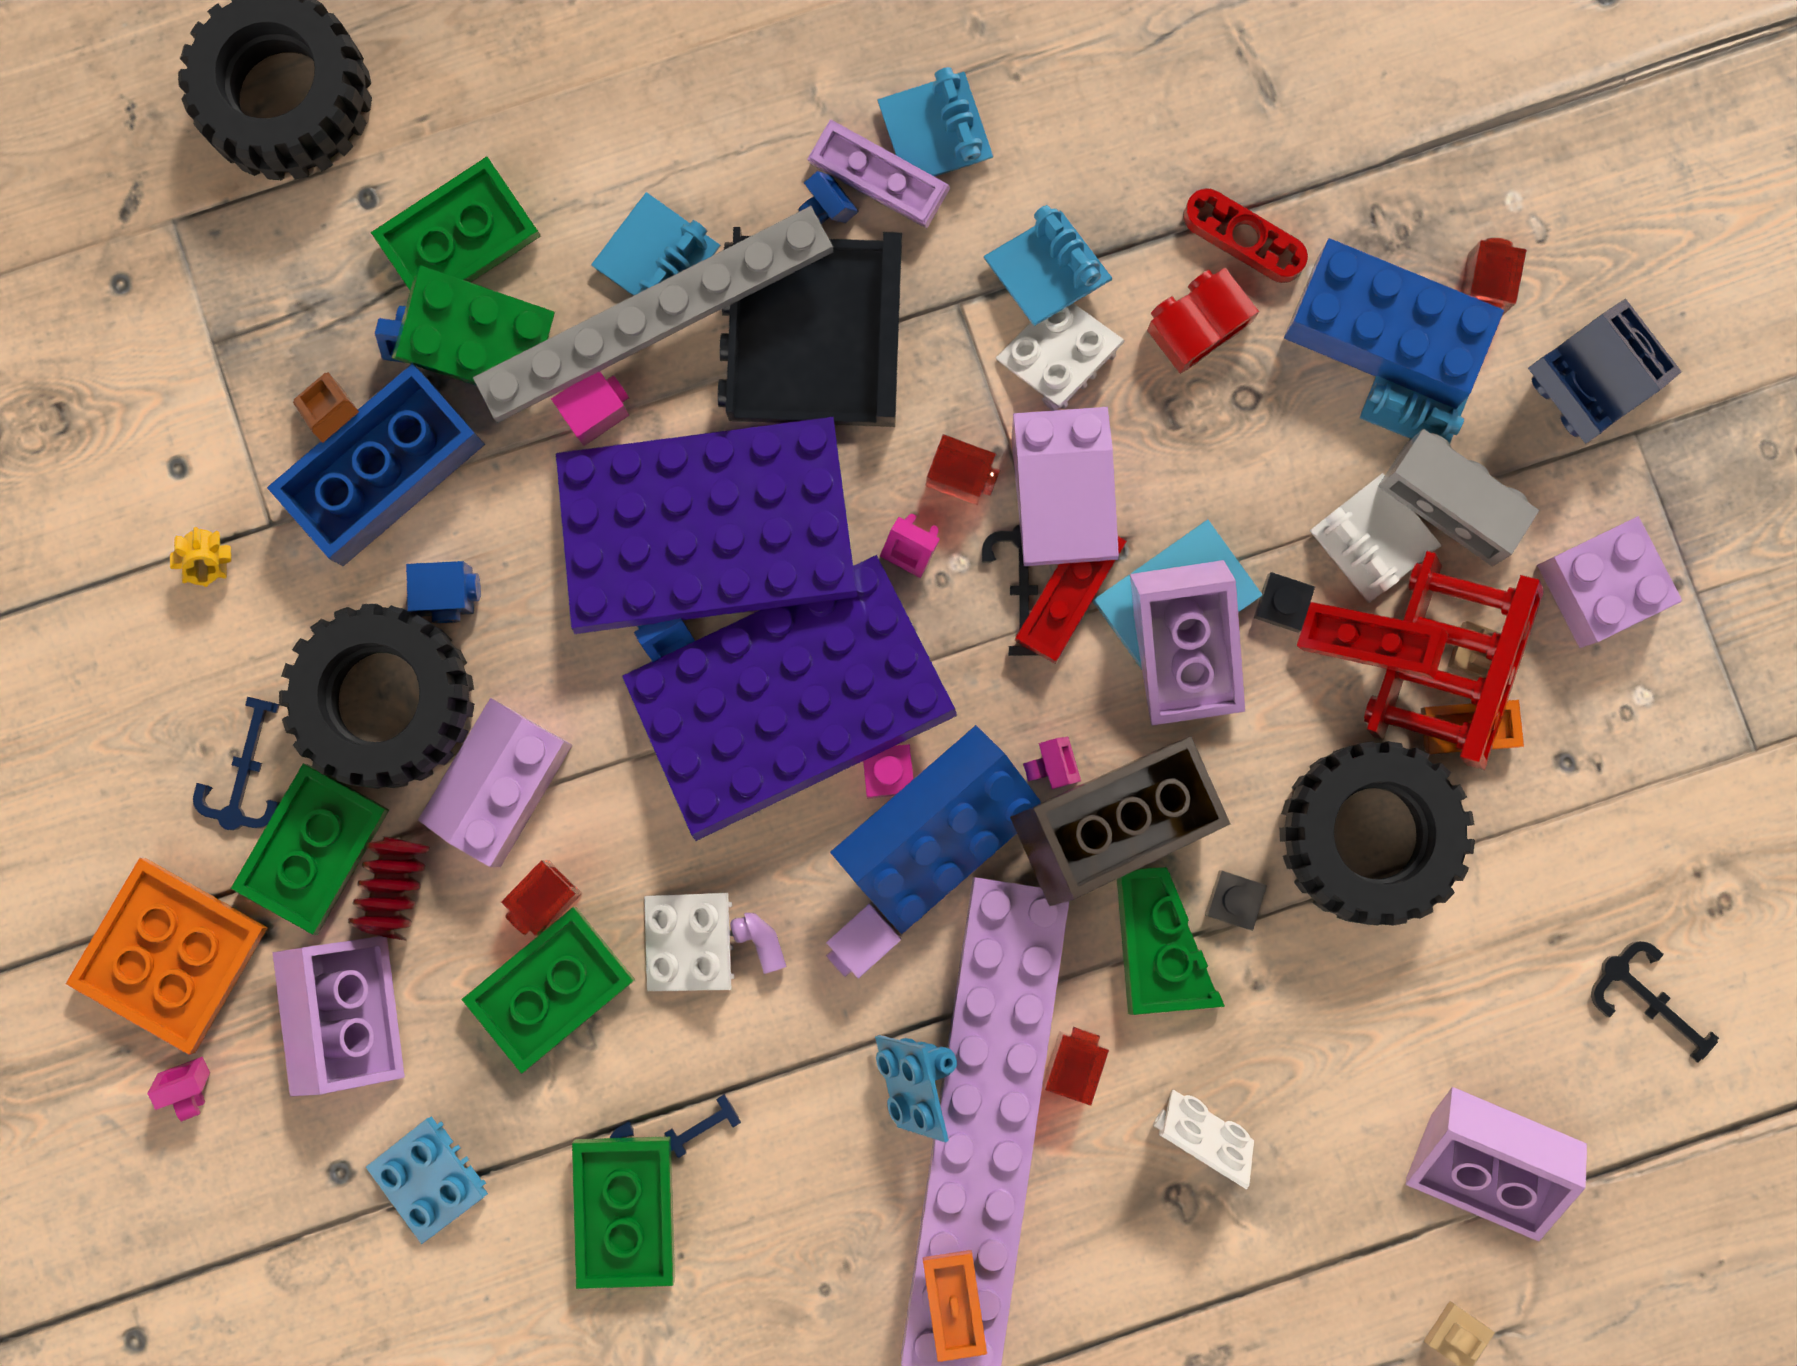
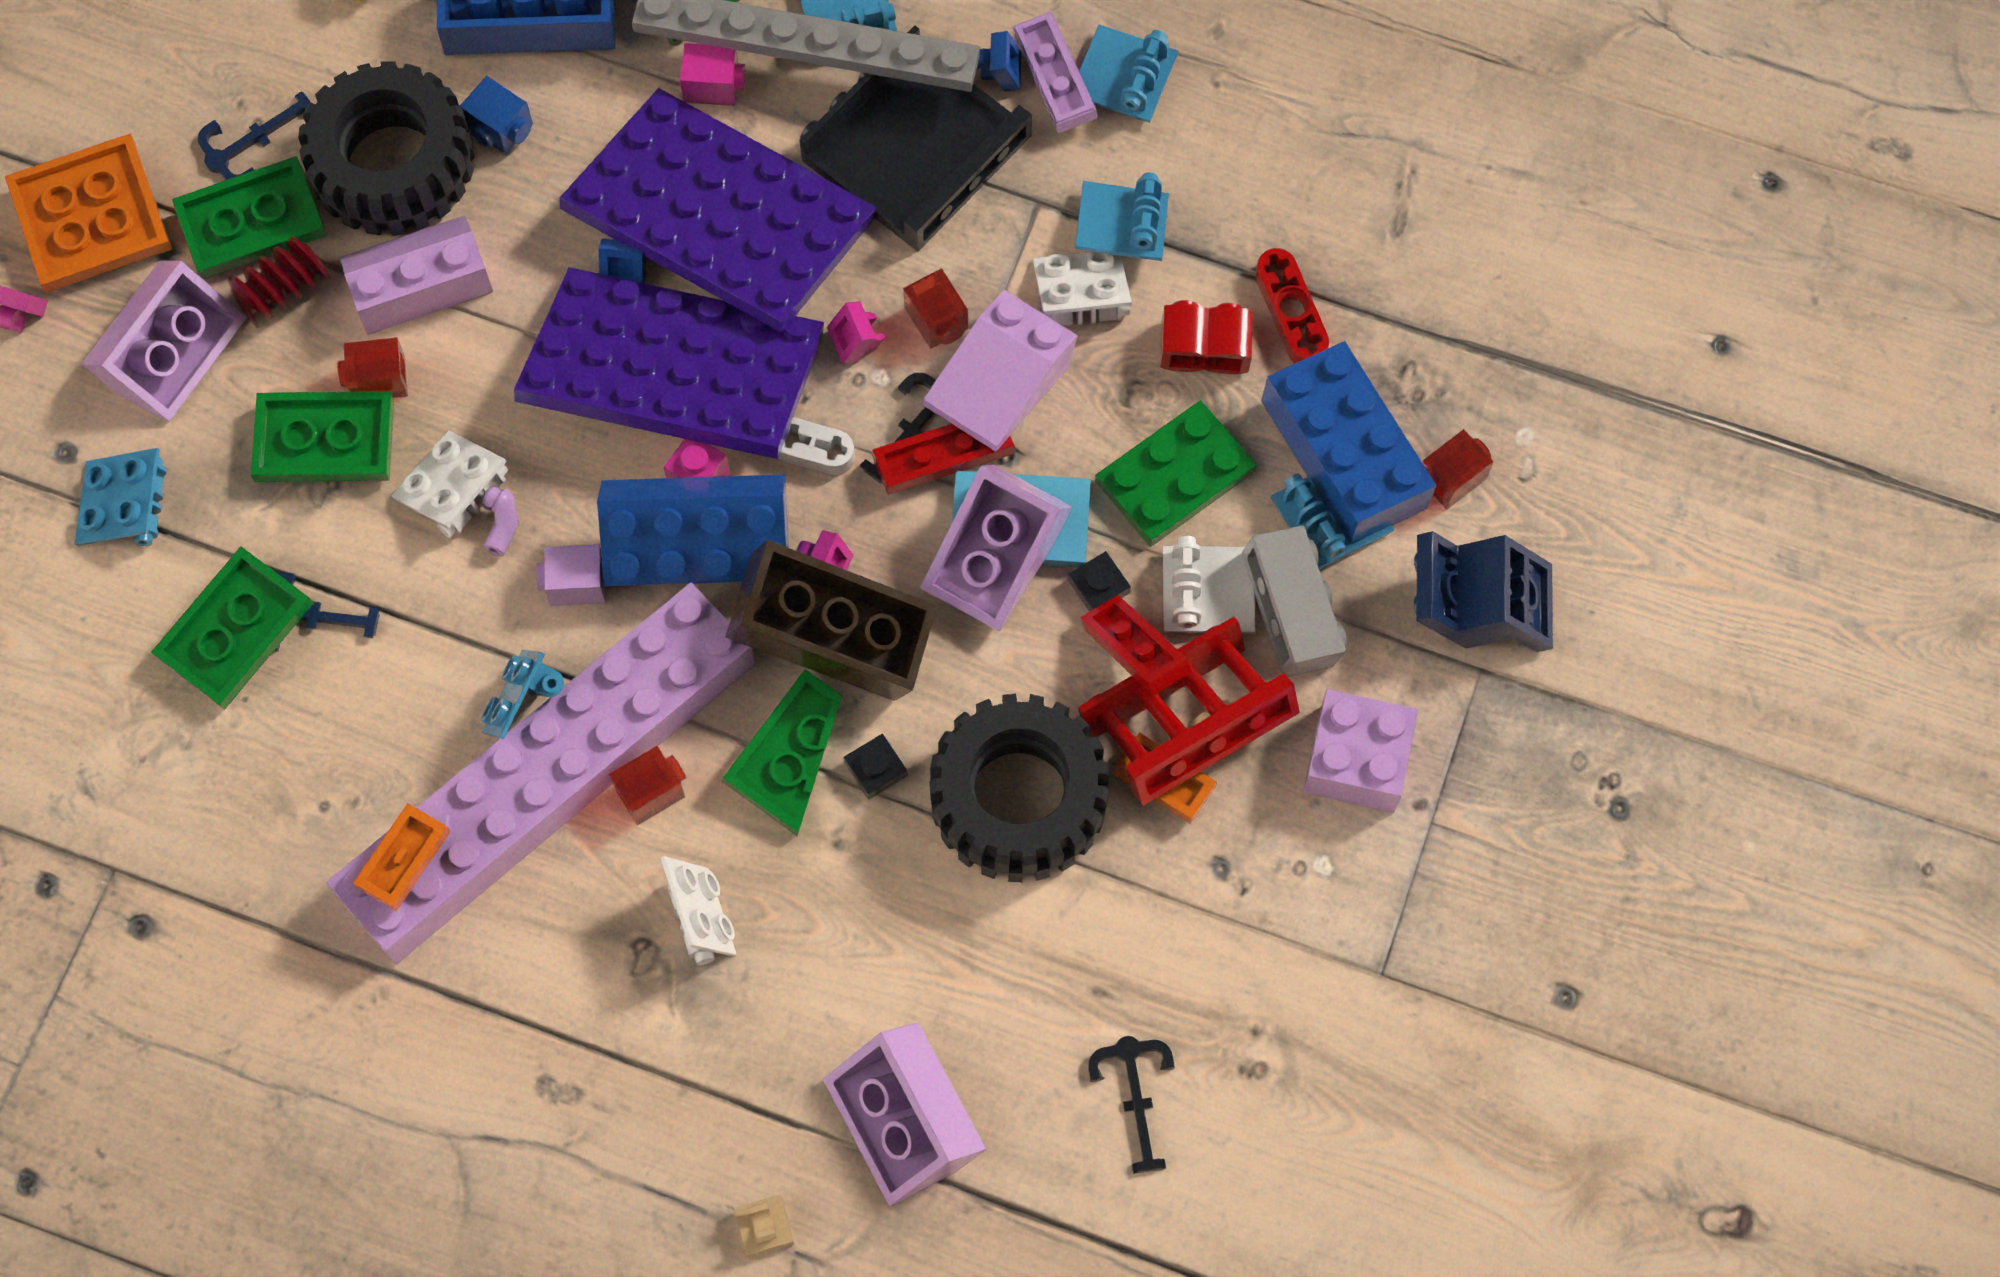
camera: 40 degrees right, 15 degrees down
(961, 655) = (814, 442): none -> white beam
(1268, 457) = (1175, 473): none -> green plate

